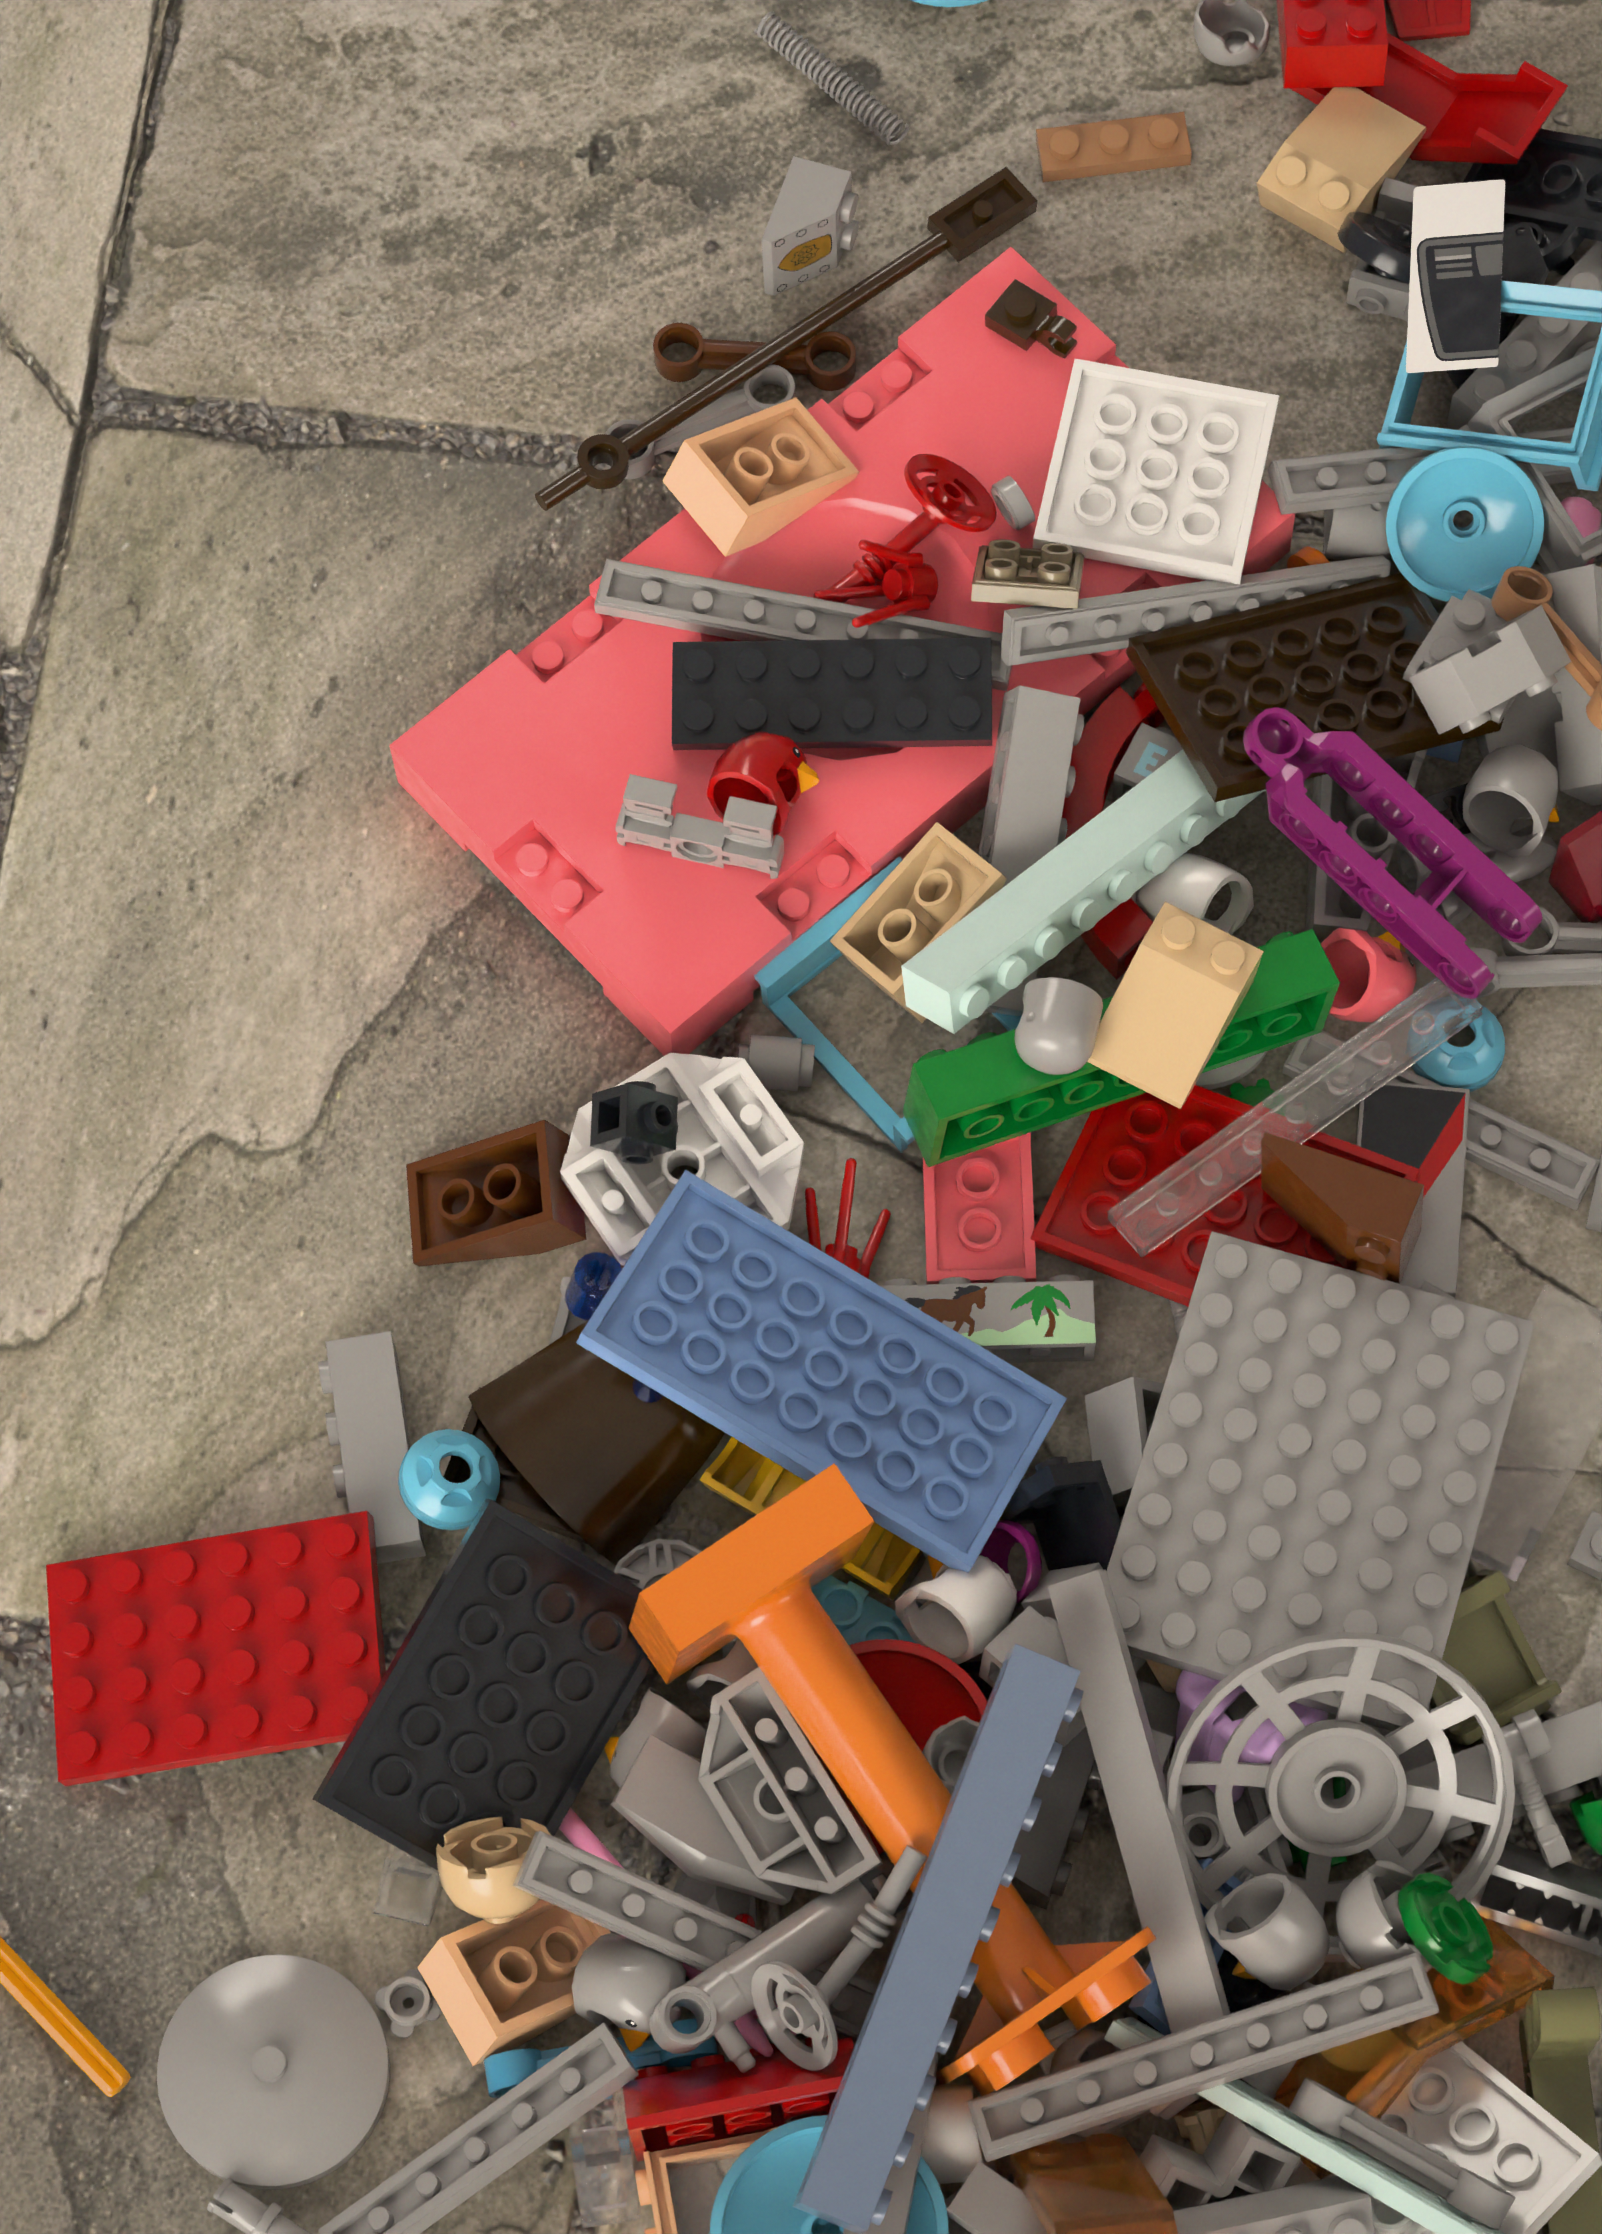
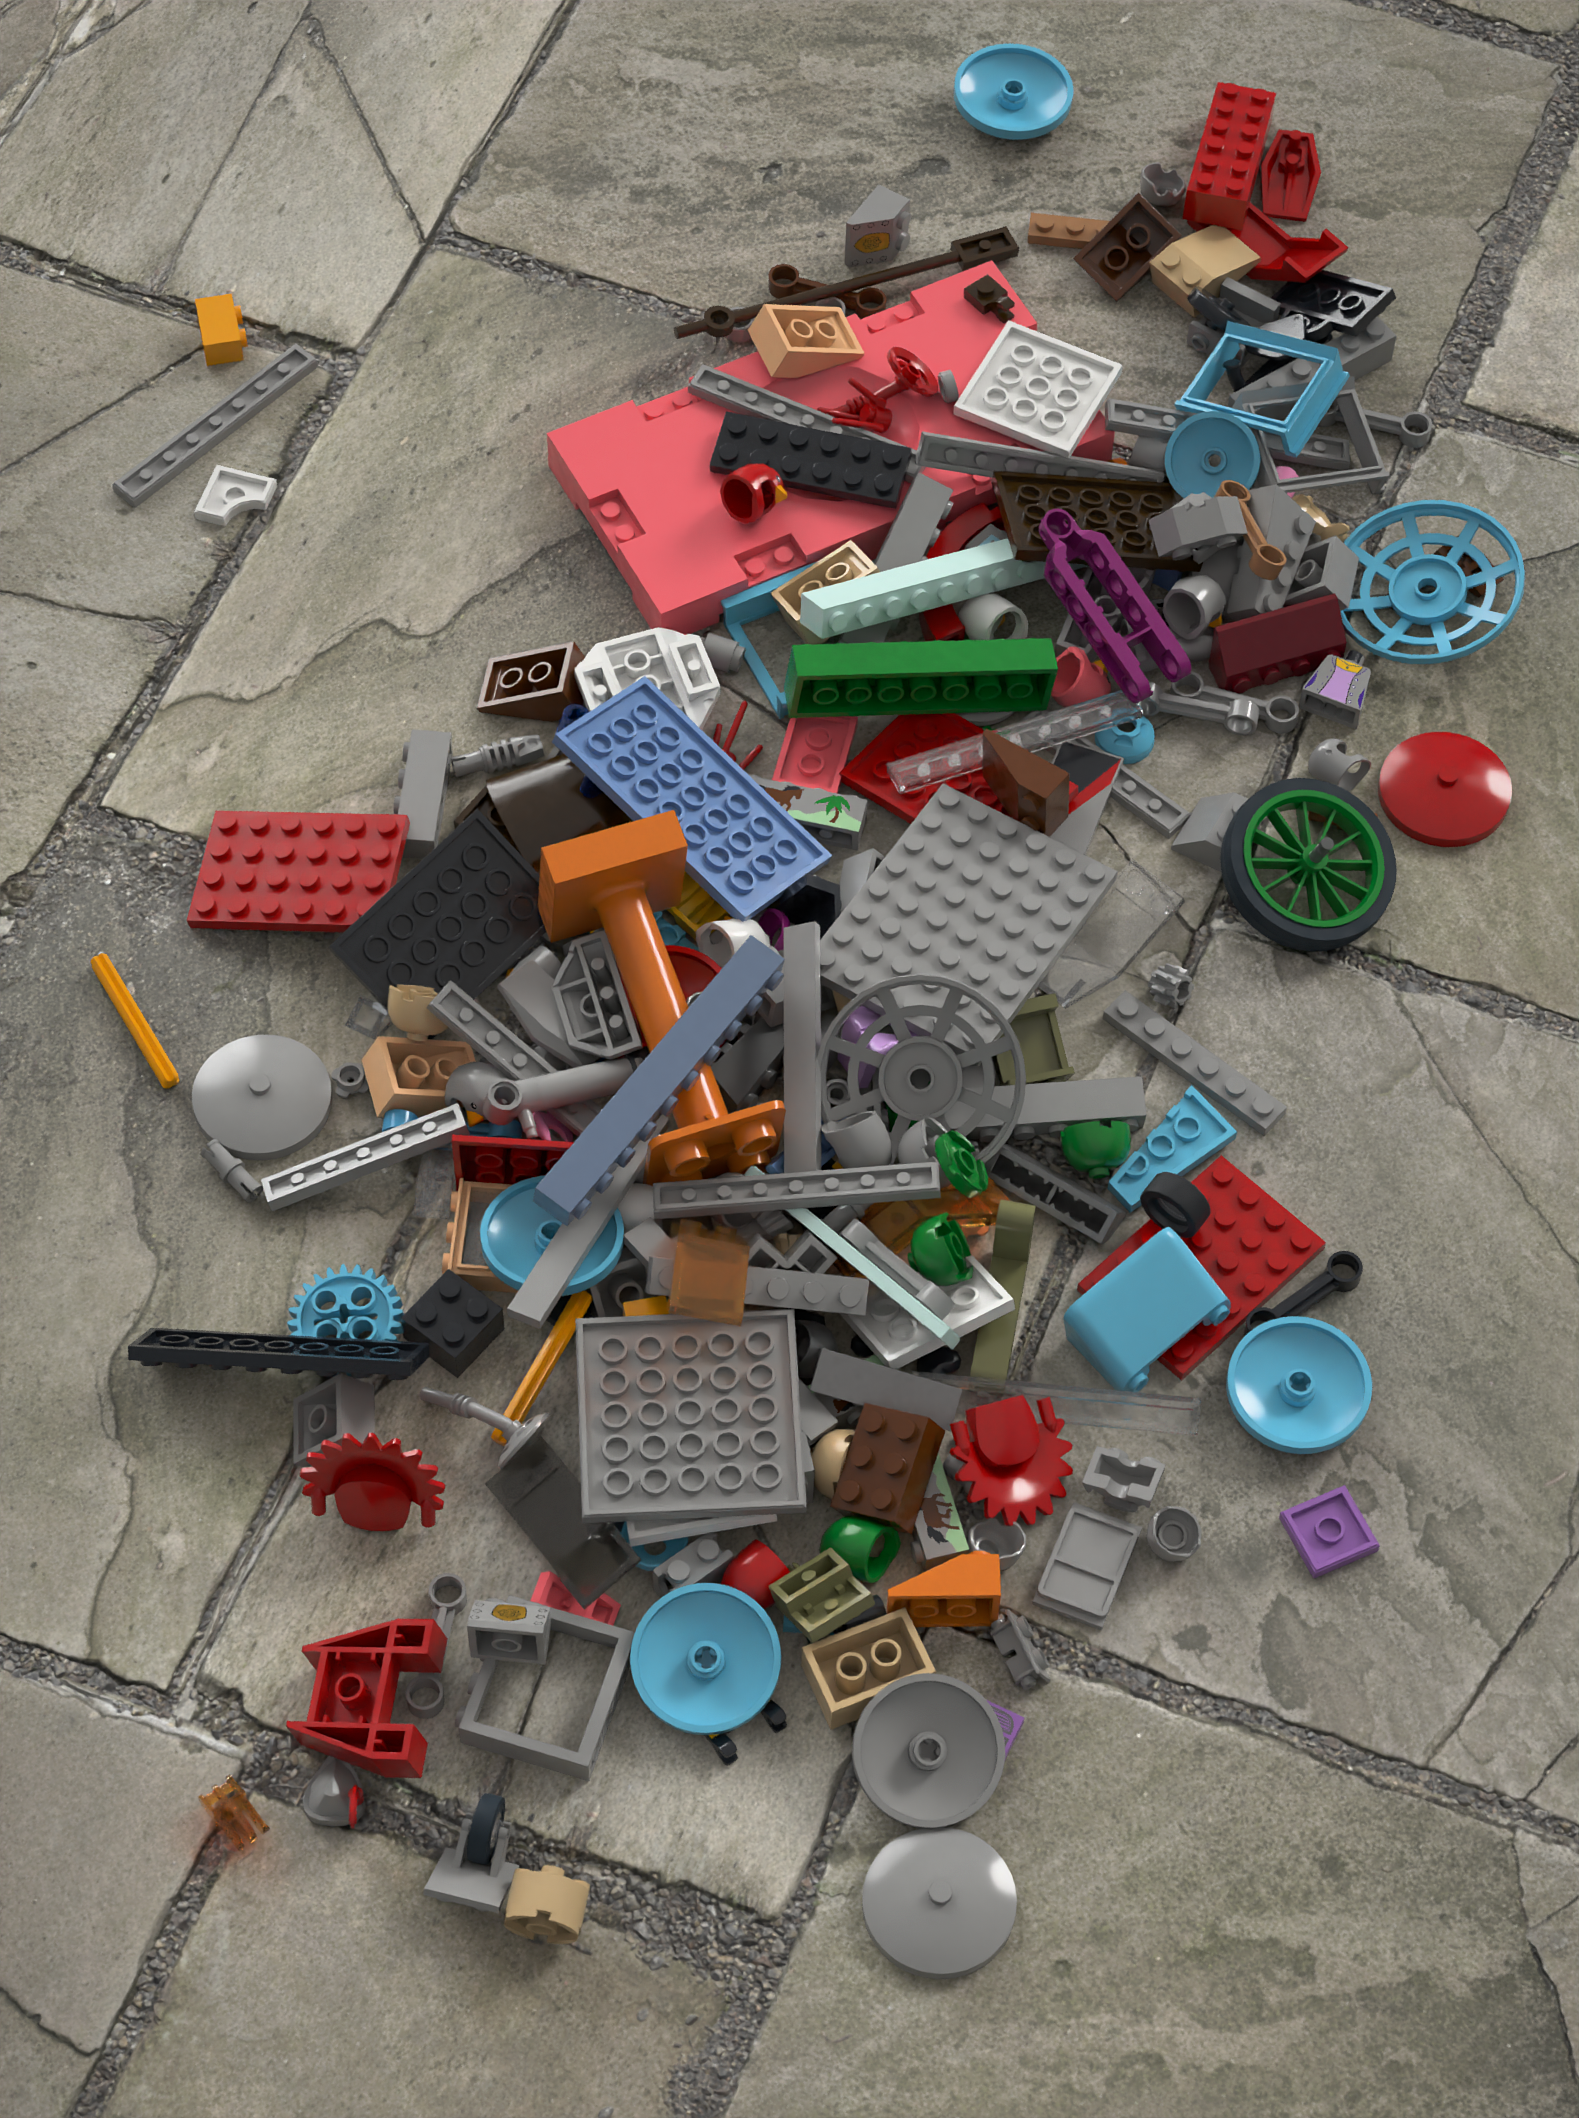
camera: 10 degrees right, 10 degrees down
(431, 1495) = (447, 817): medium azure piece -> none
(476, 1343) = (505, 754): none -> light grey hinge
(634, 1121) = (624, 650): black brick -> none
(740, 840) = (727, 521): light grey piece -> none
(809, 2005) = (572, 1102): light grey dish -> none
(826, 80) = (929, 172): light grey piece -> none
(1028, 575) = (935, 419): dark tan tile -> none
(1058, 1025) = (881, 640): light grey helmet -> none
(1174, 1004) = (954, 649): tan slope -> none
(1211, 161) = (1125, 246): none -> reddish brown slope
(1455, 276) = (1246, 325): sticker -> none
(1456, 2099) = (940, 1251): none -> green cylinder
(1526, 1741) = (1036, 1087): light grey brick -> none

